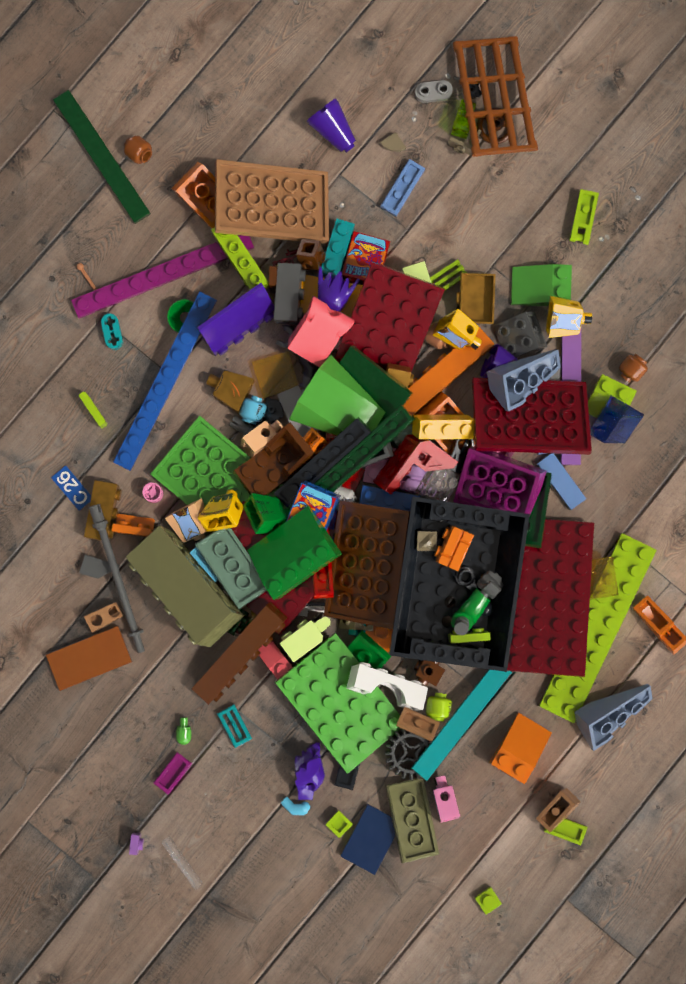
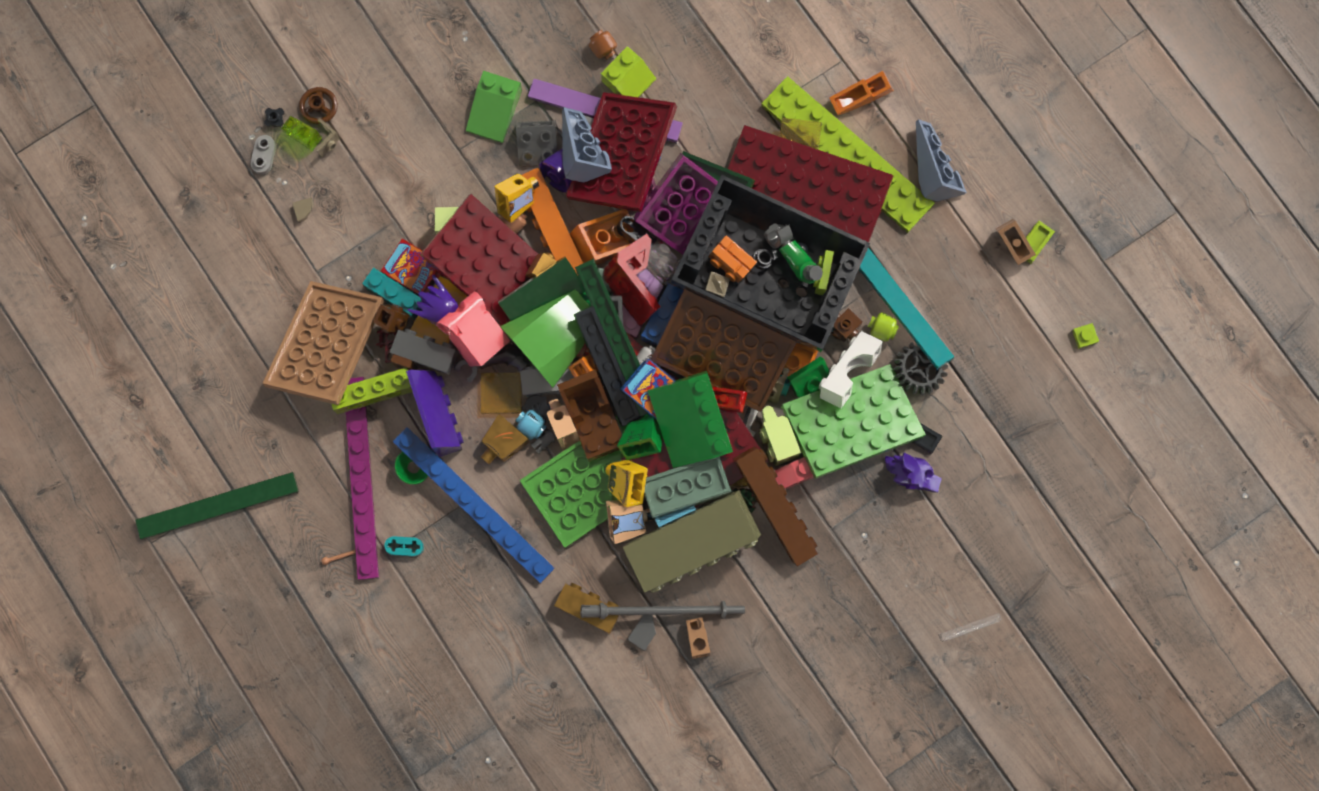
camera: 70 degrees left, 5 degrees down
(72, 488) = (554, 634): blue sticker -> none
(89, 658) = (735, 665): dark orange tile -> none
(93, 409) = (479, 588): lime tile -> none
(133, 525) = (612, 579): orange bracket -> none
(136, 843) = (938, 668): medium lavender plate -> none
(138, 149) = (223, 465): dark orange head -> none
(149, 492) = (582, 548): bright pink wheel -> none
(172, 773) = (876, 612): magenta tile -> none
(183, 731) = (837, 589): bright green cylinder -> none
(198, 192) = (290, 413): orange slope -> none
(242, 740) = (828, 539): teal tile -> none
(295, 809) = (946, 497): medium azure arm -> none
(333, 126) = (265, 261): dark purple cone -> none
(339, 824) = (972, 458): lime plate -> none
(370, 839) = (995, 432): dark blue tile -> none
(402, 188) = (351, 213): medium blue tile -> none
(412, 820) = (987, 386): olive tile -> none
(418, 724) = (895, 350): medium nougat plate -> none
(443, 427) = (607, 237): yellow brick -> none
(447, 809) = (986, 347): bright pink torso -> none
(460, 269) = (451, 180): lime tile -> none
(477, 297) = (484, 170): pearl gold container -> none
(507, 112) = (304, 105): dark orange door -> none
(520, 748) = (945, 261): orange slope -> none
(562, 481) = (695, 144): medium blue tile -> none
(565, 317) = (534, 91): yellow torso -> none
(584, 216) = (437, 47): lime plate -> none
(615, 422) = (650, 75): clear blue slope -> none

